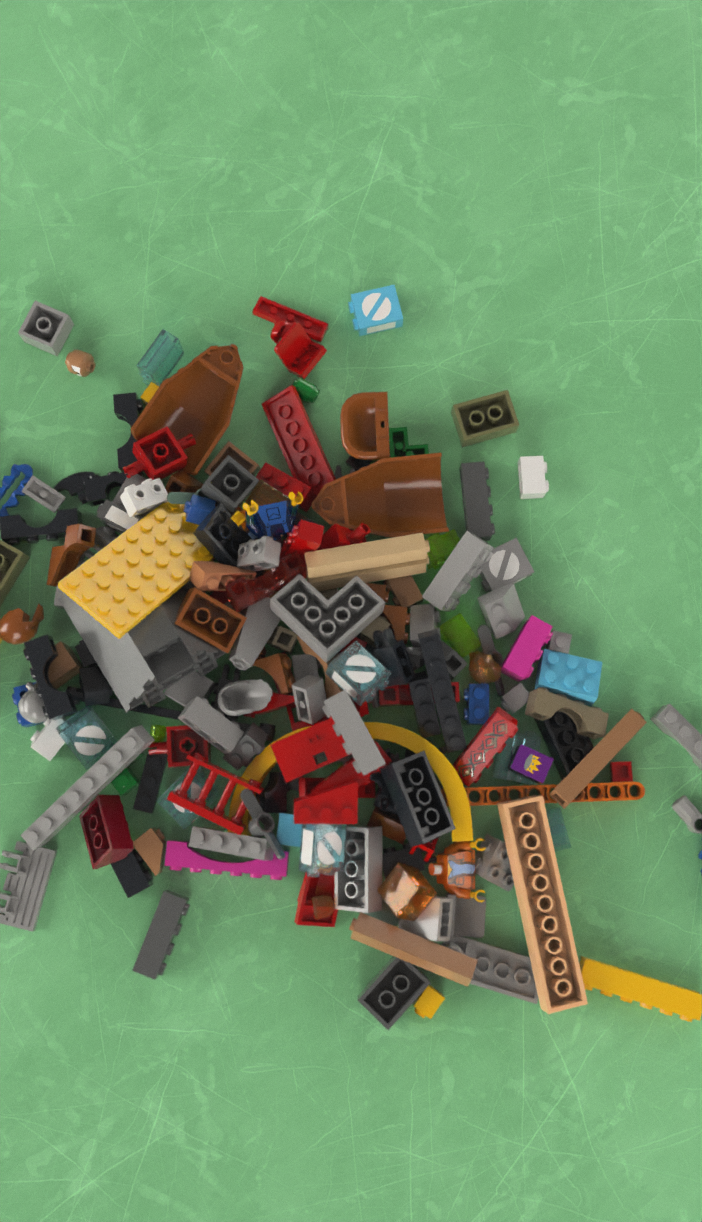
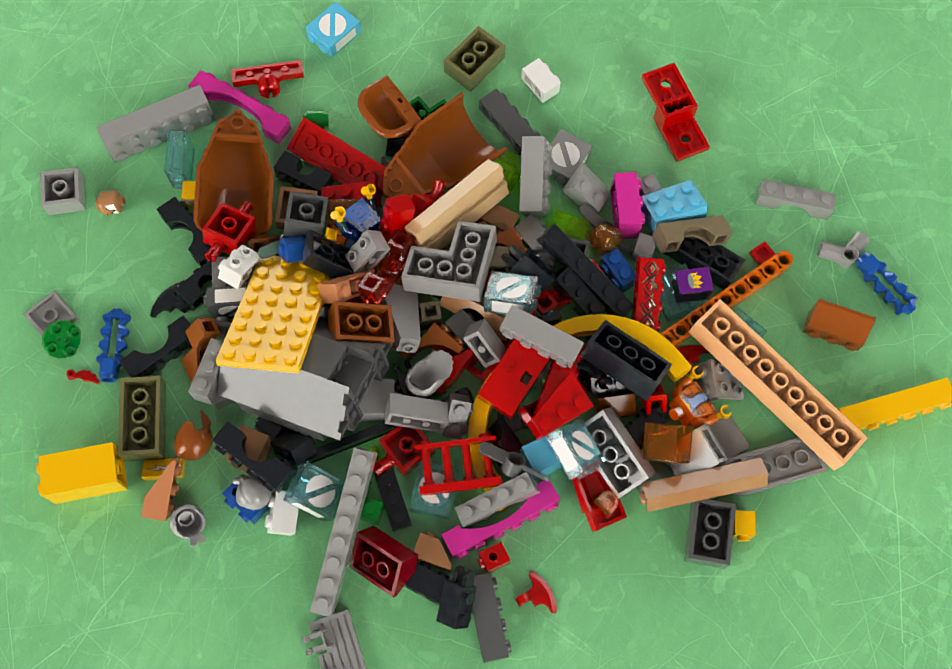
camera: 35 degrees left, 10 degrees down
(43, 494) = (145, 323): light grey plate -> none
(49, 584) = (206, 378): none -> light grey arch
(143, 905) = (457, 599): none -> black hinge
(161, 312) = (151, 124): none -> light grey brick
(205, 888) = (497, 551): none -> red brick
(218, 942) = (538, 594): none -> red piece
(228, 302) = (274, 125): none -> dark pink arch
(251, 424) = (288, 170): none -> black arch
(299, 351) = (292, 93): red bracket -> none
(383, 713) = (552, 317): none -> black plate
(488, 820) = (692, 353): none -> red piece
(598, 758) = (739, 252): medium nougat brick -> none
(635, 586) = (675, 112): none -> red bracket
(640, 884) = (838, 325): none -> dark orange slope

